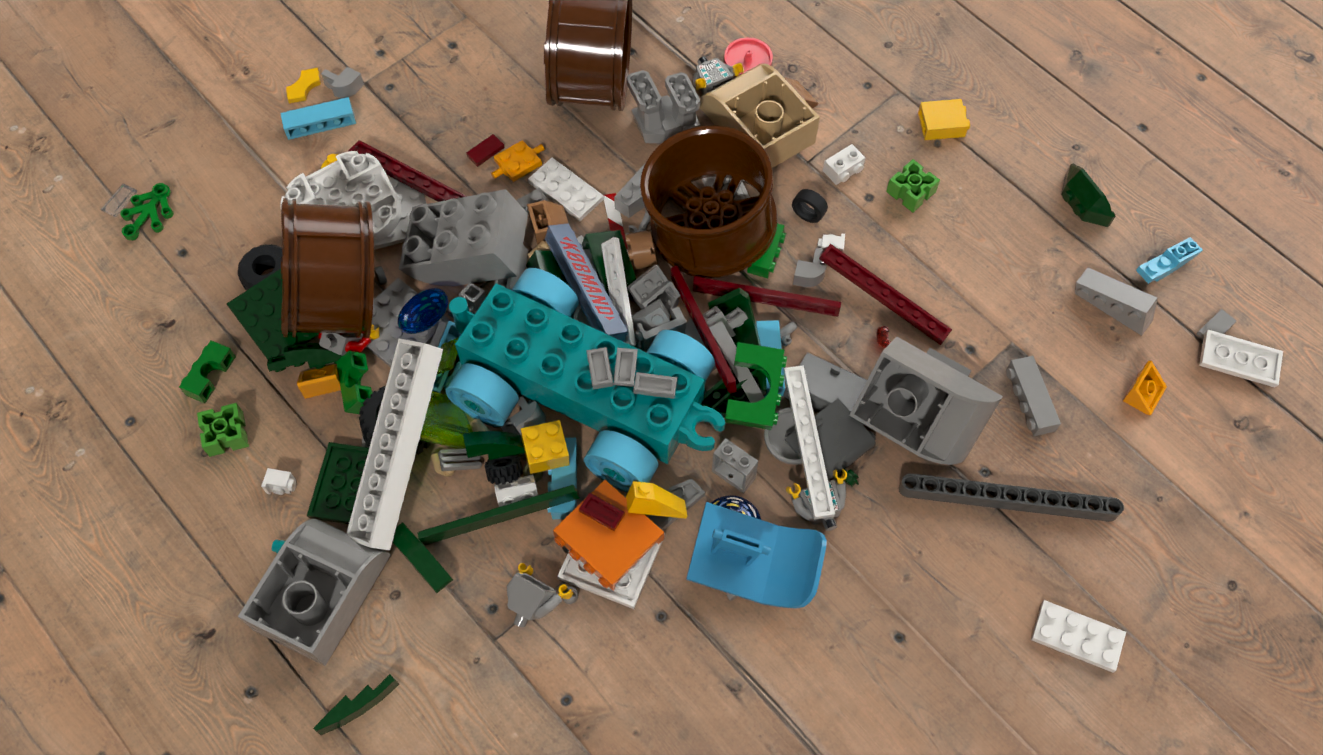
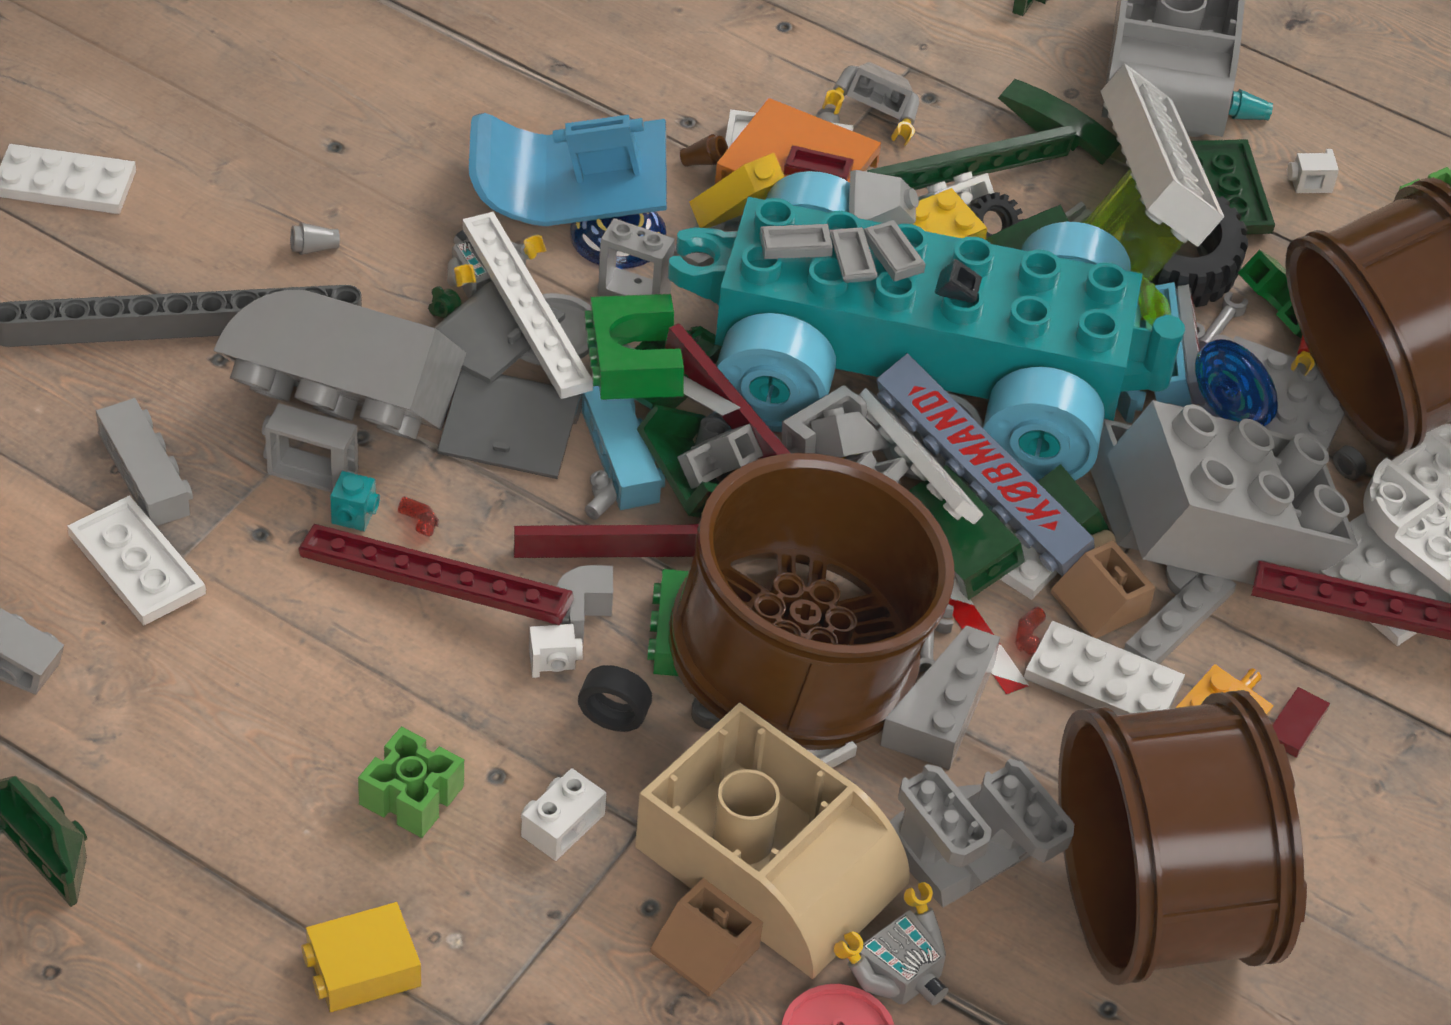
camera: 160 degrees right, 15 degrees down
(571, 337) = (958, 282): none -> black slope
(582, 444) = (882, 198): none -> light grey slope
(592, 217) = (1025, 629): none -> clear red arm
(660, 567) = (704, 152): none -> reddish brown cone
(922, 341) = (354, 501): none -> teal brick
(923, 547) = (312, 238): none -> light grey cone
(1037, 336) = (136, 560): none -> white plate

